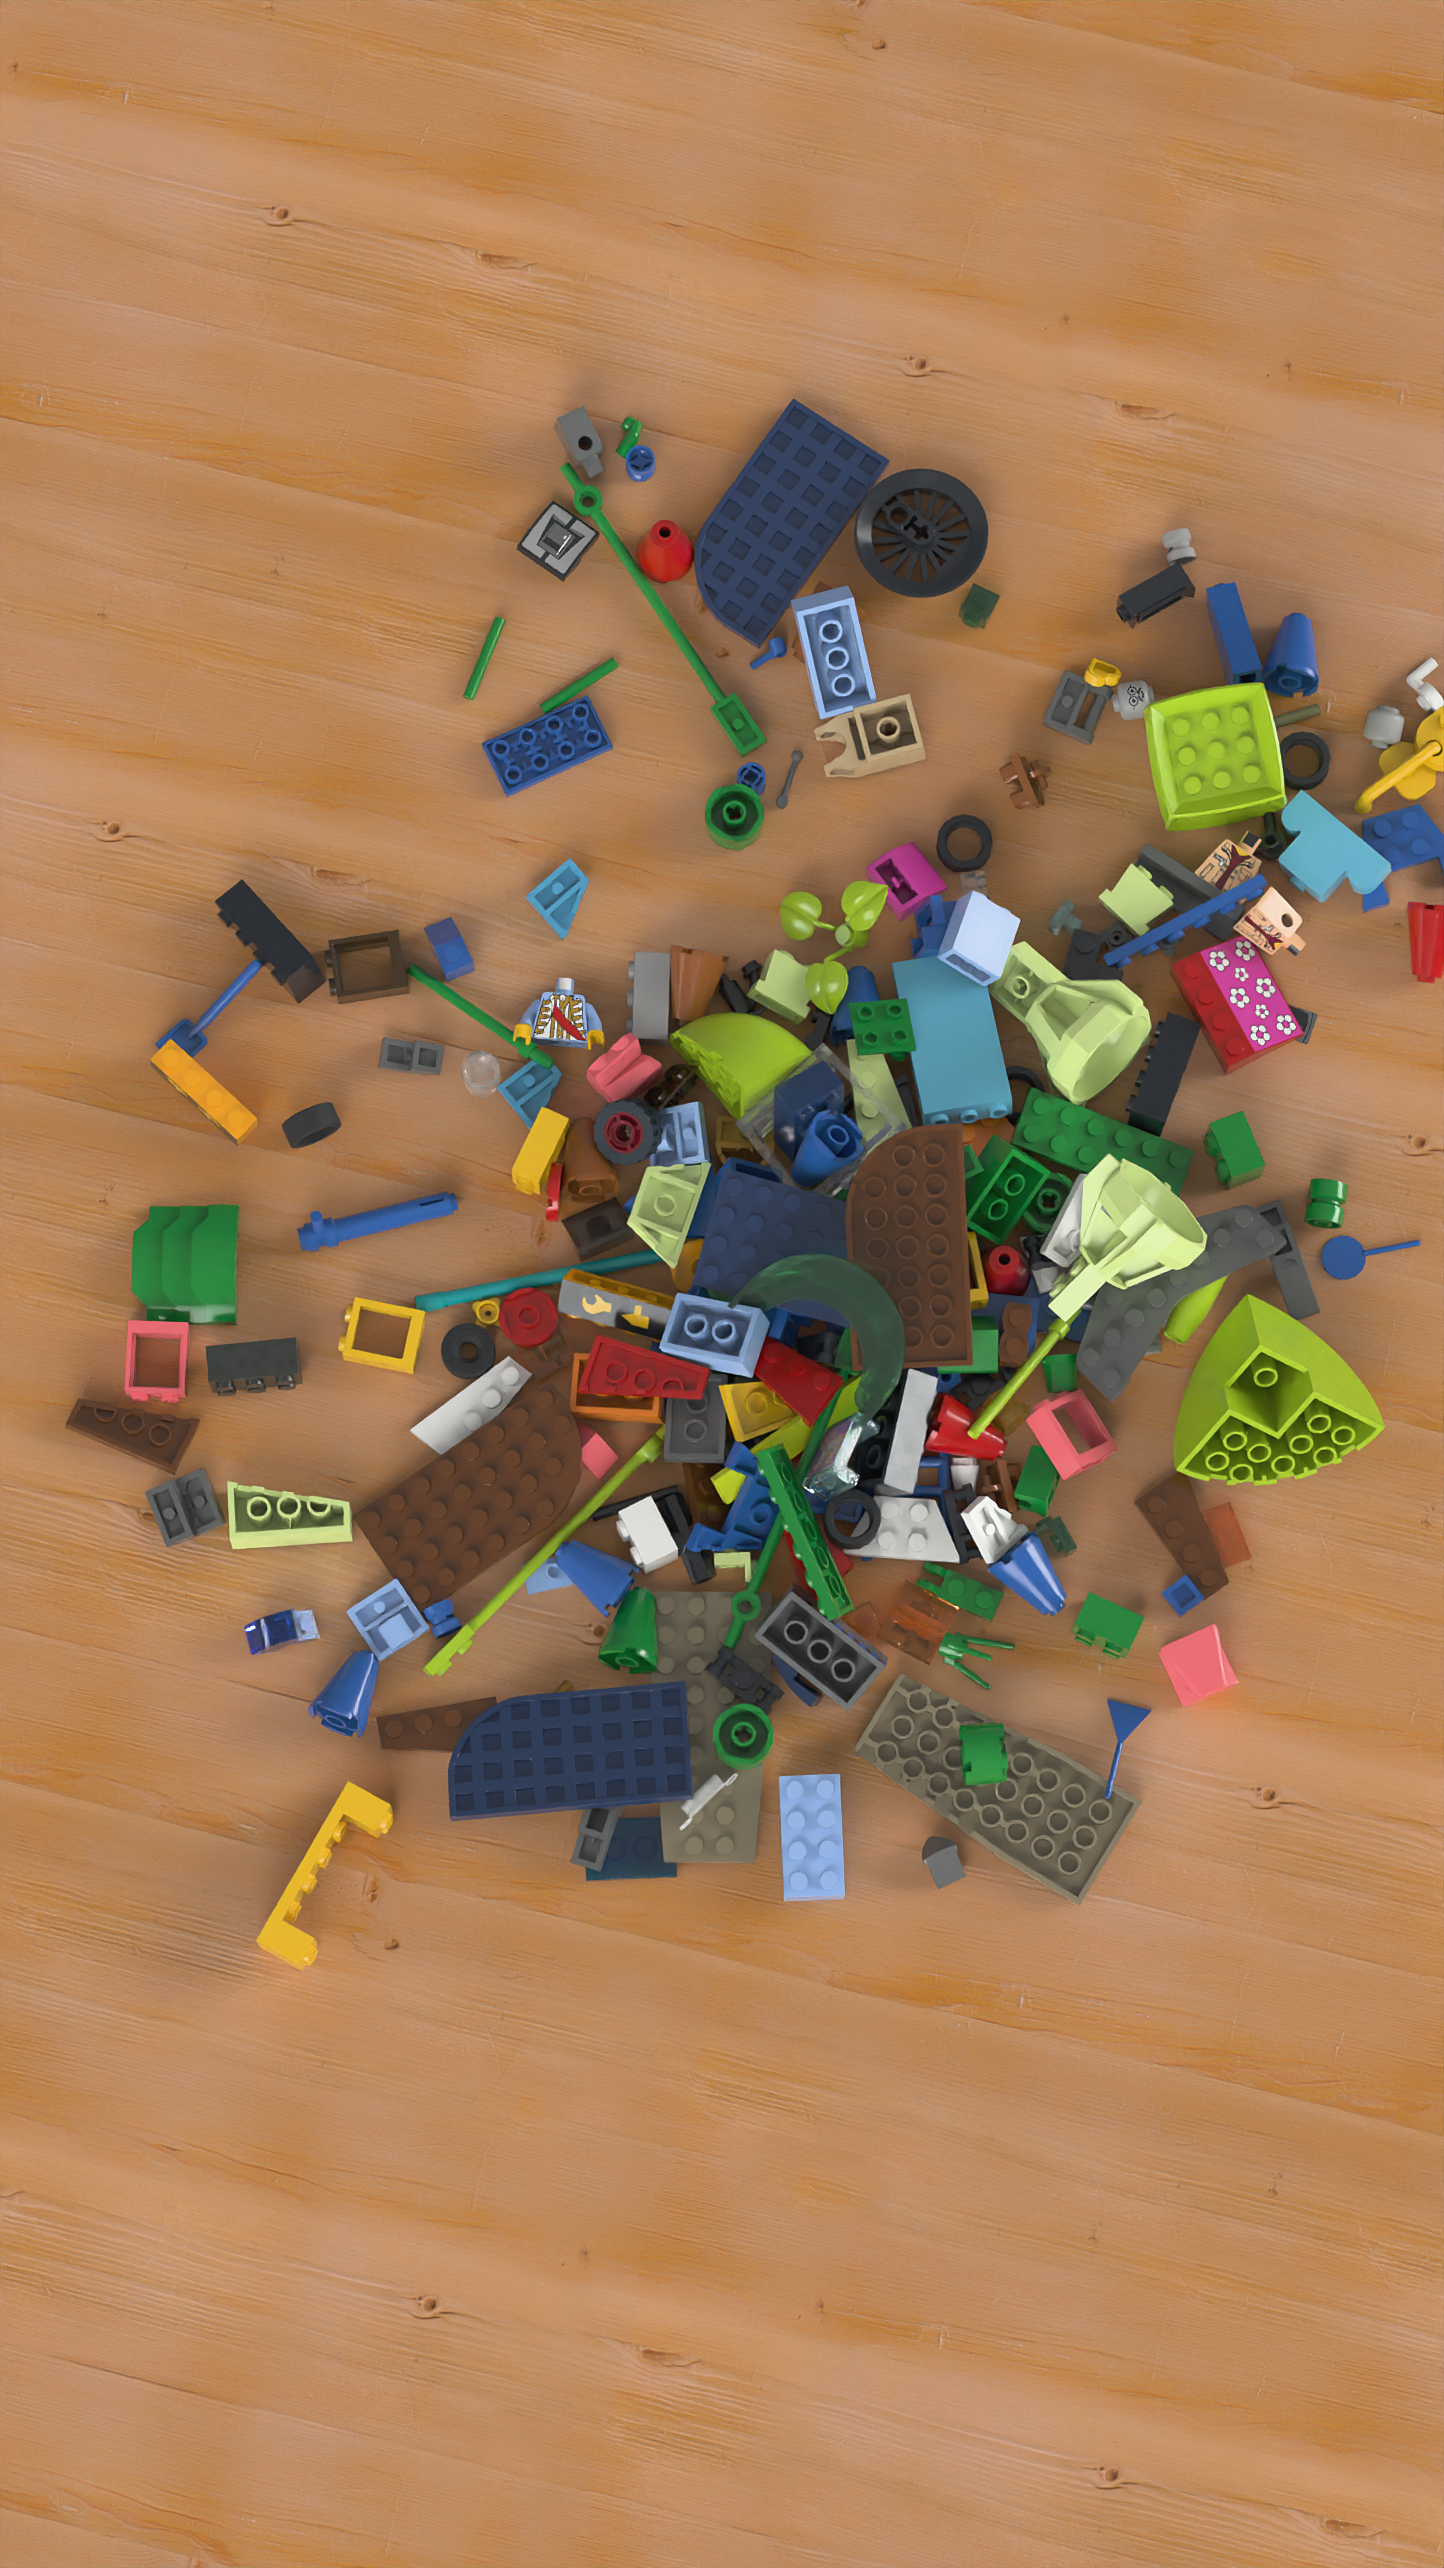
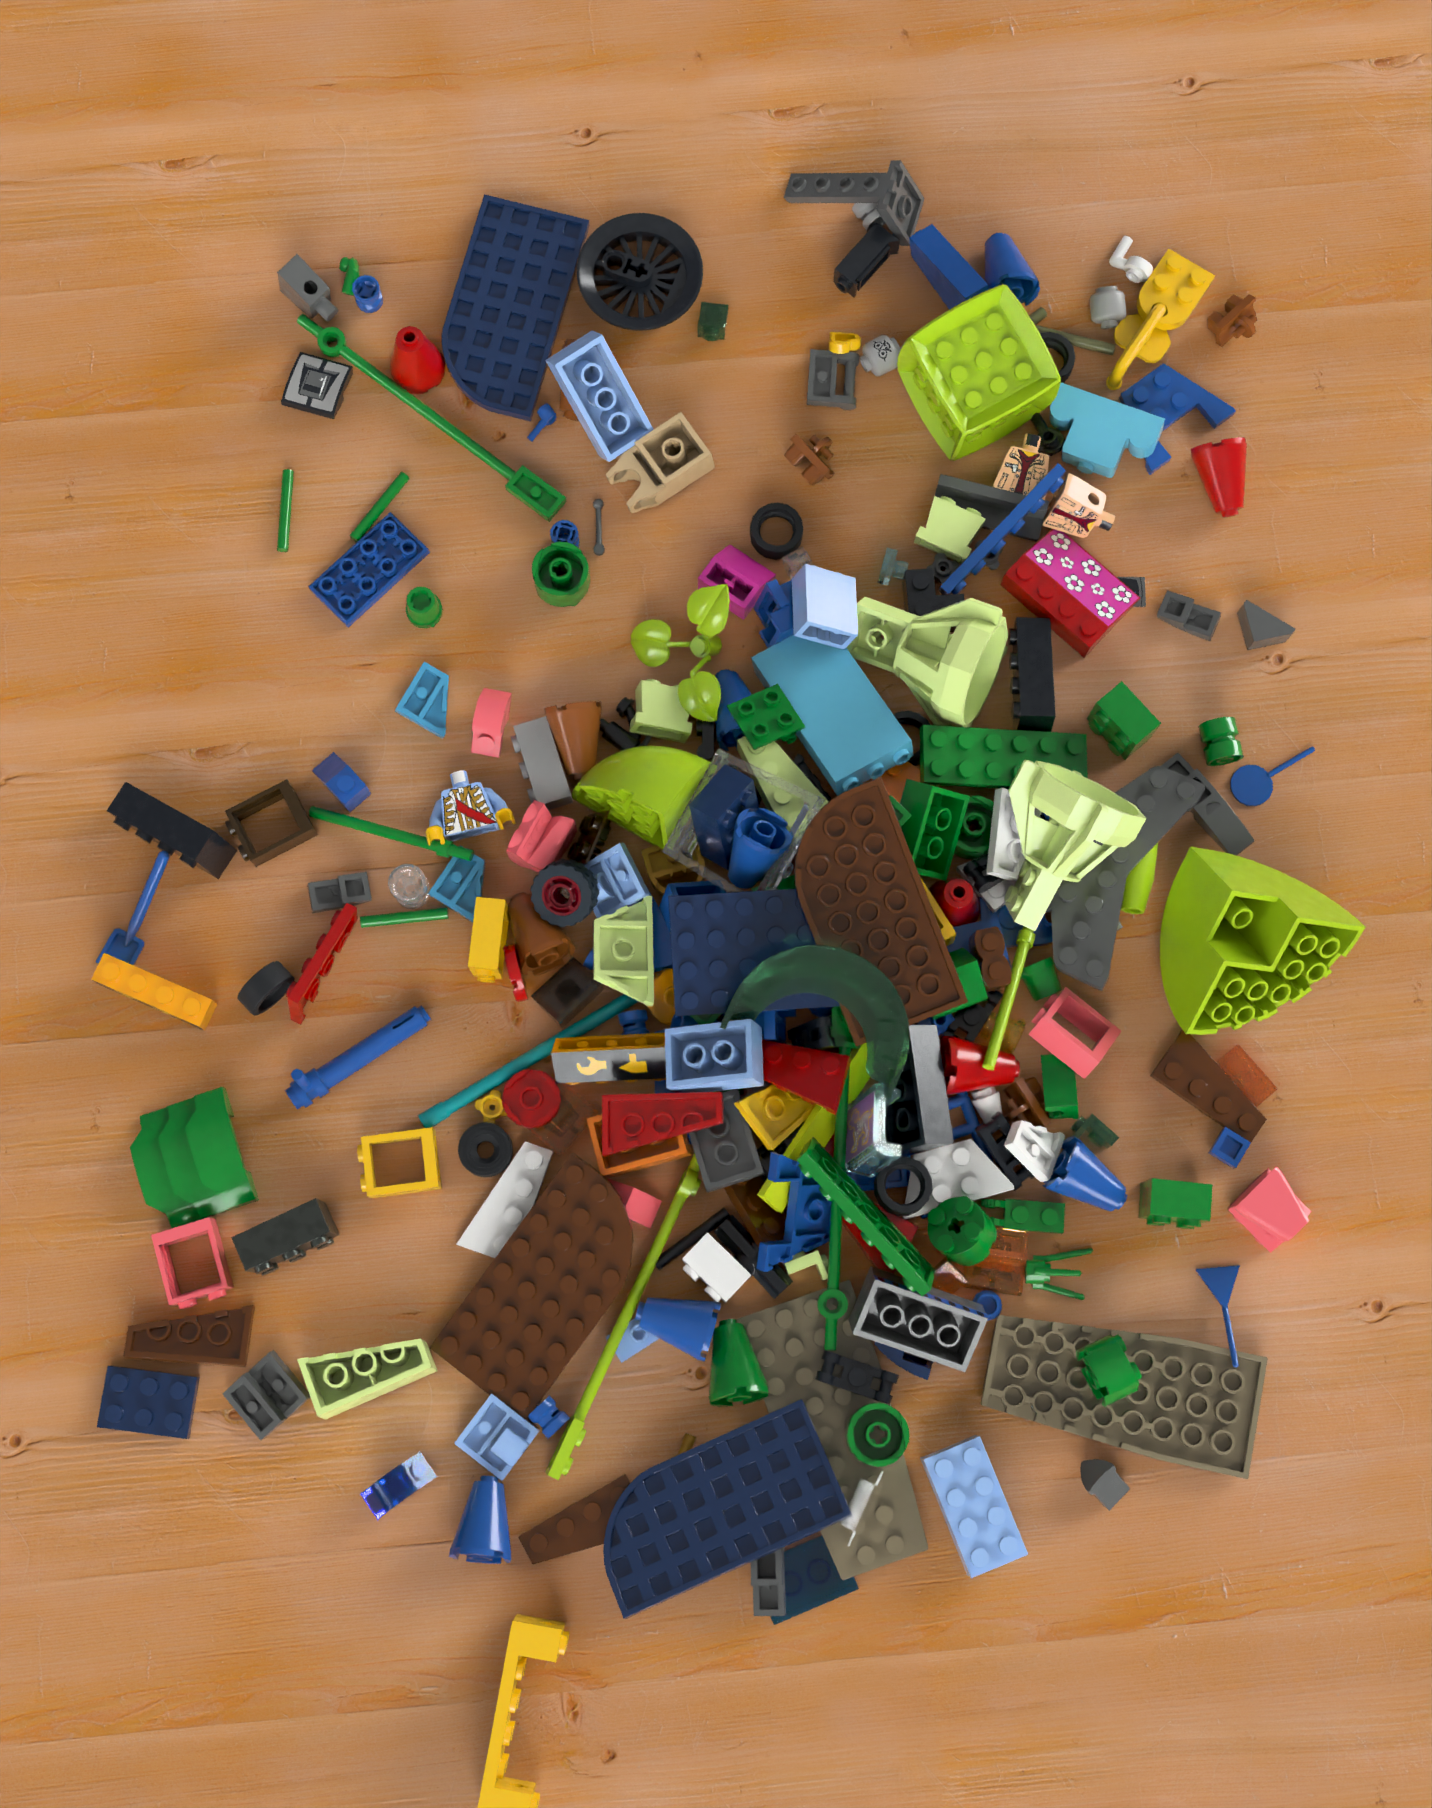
camera: 20 degrees left, 0 degrees up
(73, 1475) = (148, 1402): none -> dark blue plate
(370, 1121) = (321, 963): none -> red wing
(465, 1102) = (404, 917): none -> green bar
(587, 804) = (423, 608): none -> green piece
(613, 940) = (489, 722): none -> coral brick
(652, 1278) = (634, 1022): none -> blue wheel
(892, 1581) = (961, 1231): none -> green brick
(896, 1662) = (991, 1303): none -> blue plate
(1206, 542) = (894, 192): none -> dark grey bracket
(1341, 750) = (1082, 342): none -> olive bar
(1344, 1068) = (1187, 616): none -> dark grey slope
(1412, 1106) = (1261, 627): none -> dark grey slope

